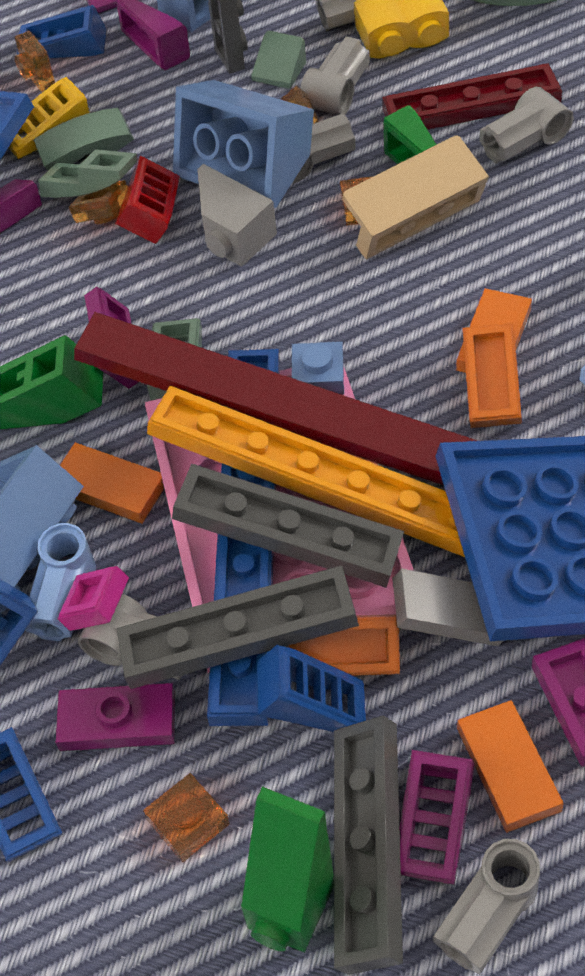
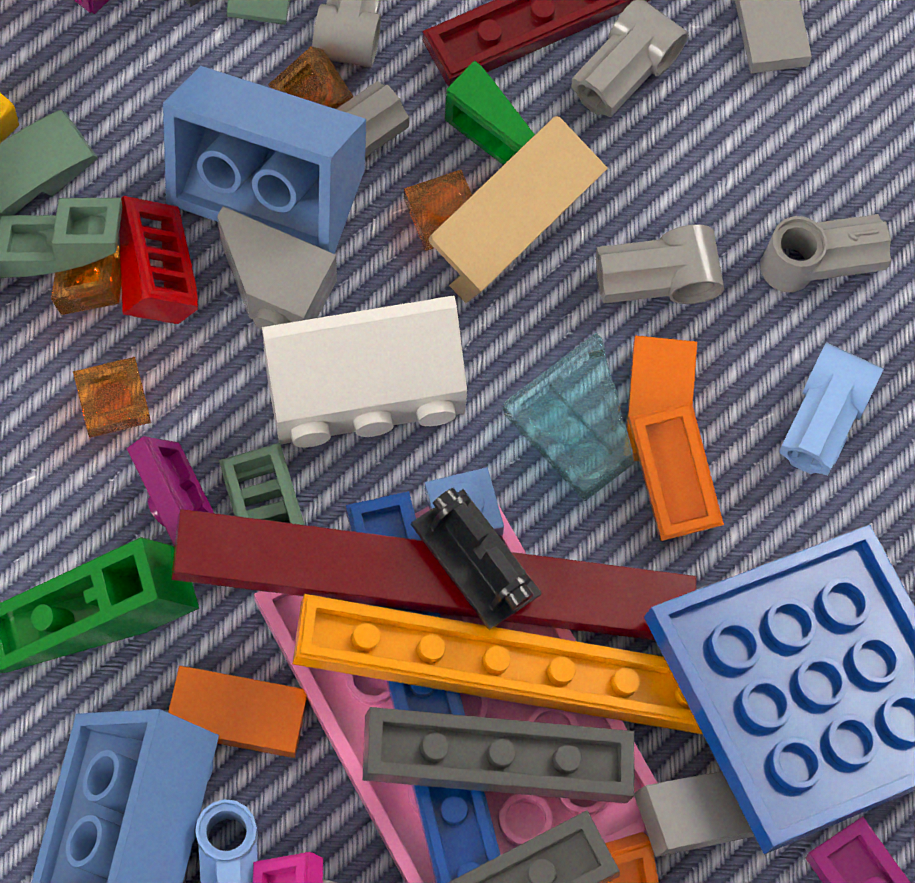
camera: 25 degrees left, 15 degrees up
(89, 270) = (112, 397): none -> clear orange plate
(270, 269) = (365, 371): none -> white slope
(309, 383) = (475, 557): none -> black hinge
(423, 331) = (575, 419): none -> clear light blue wing
(531, 250) = (676, 266): none -> light grey piece

